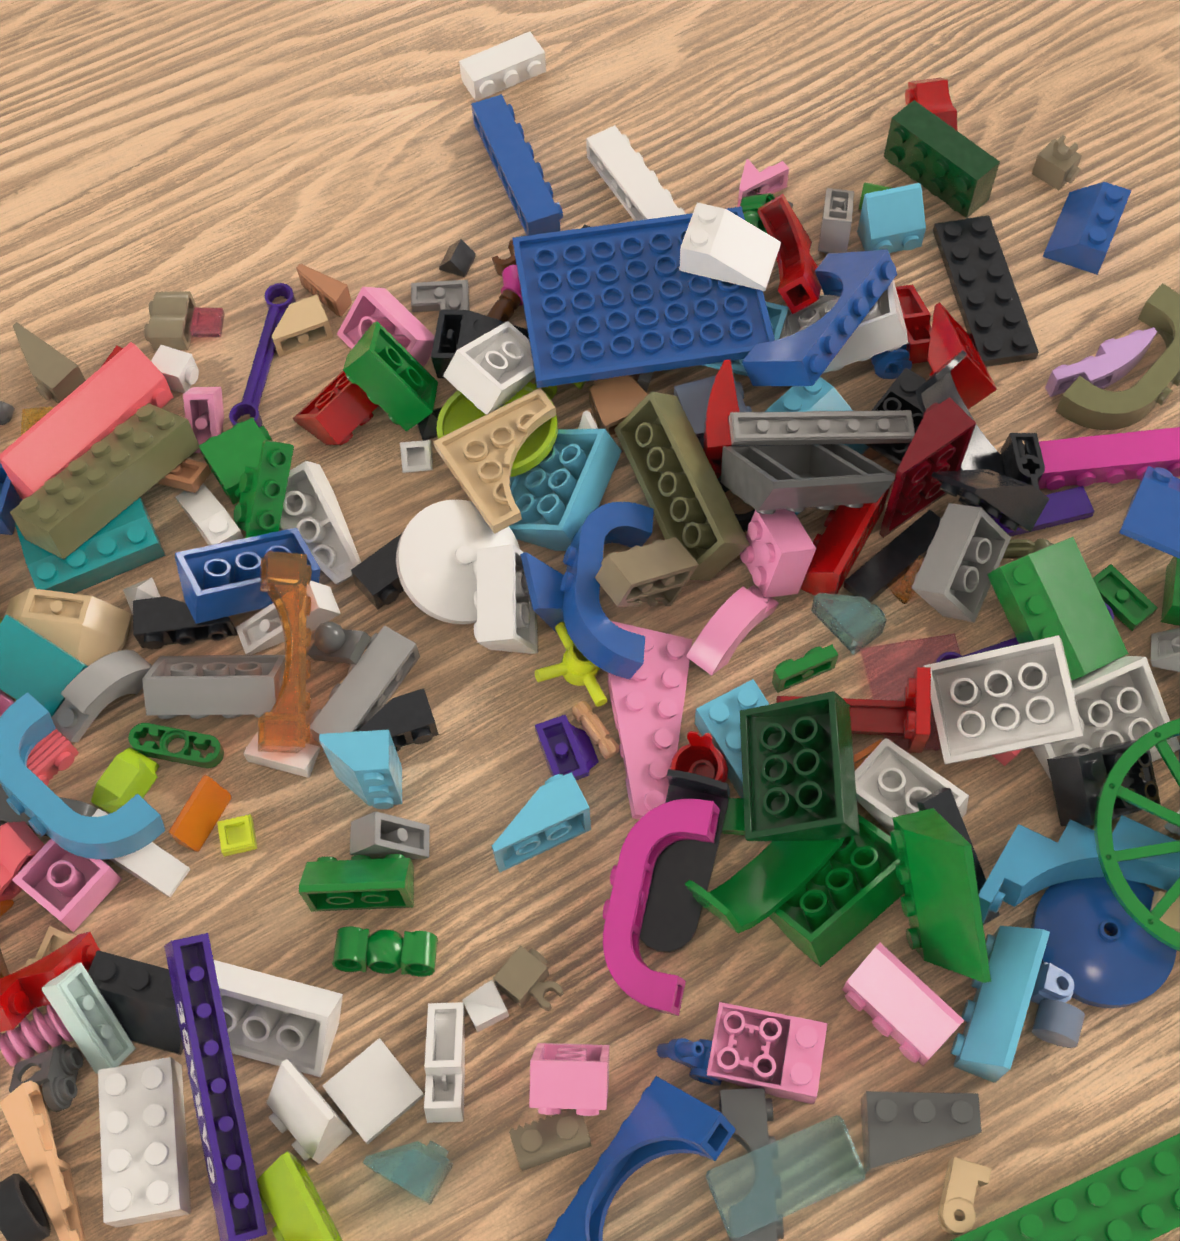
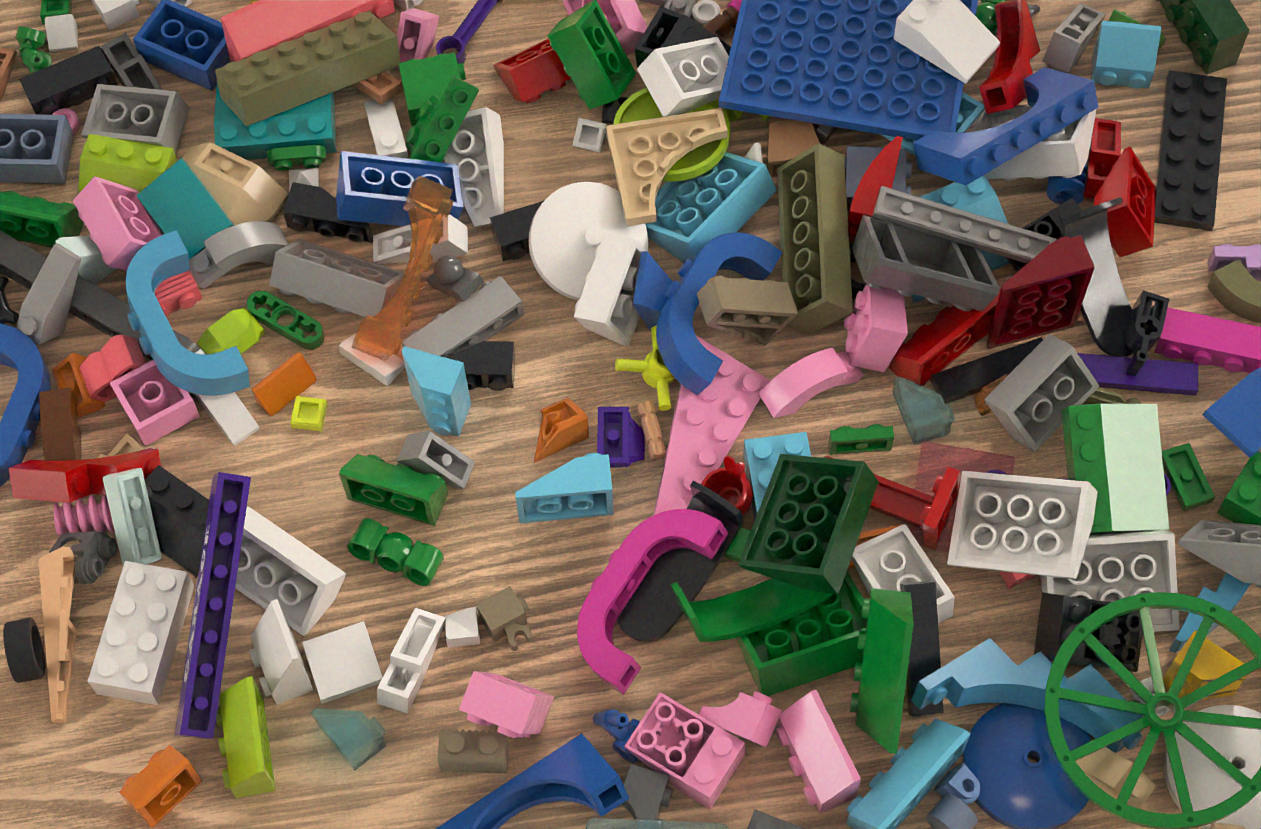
camera: 20 degrees right, 0 degrees up
(137, 569) = (286, 157): none -> green plate
(481, 302) = (705, 11): none -> white tile
(503, 758) = (560, 428): none -> orange slope
(818, 996) = (746, 717): none -> bright pink arch
(1000, 496) = (1096, 341): black slope -> none

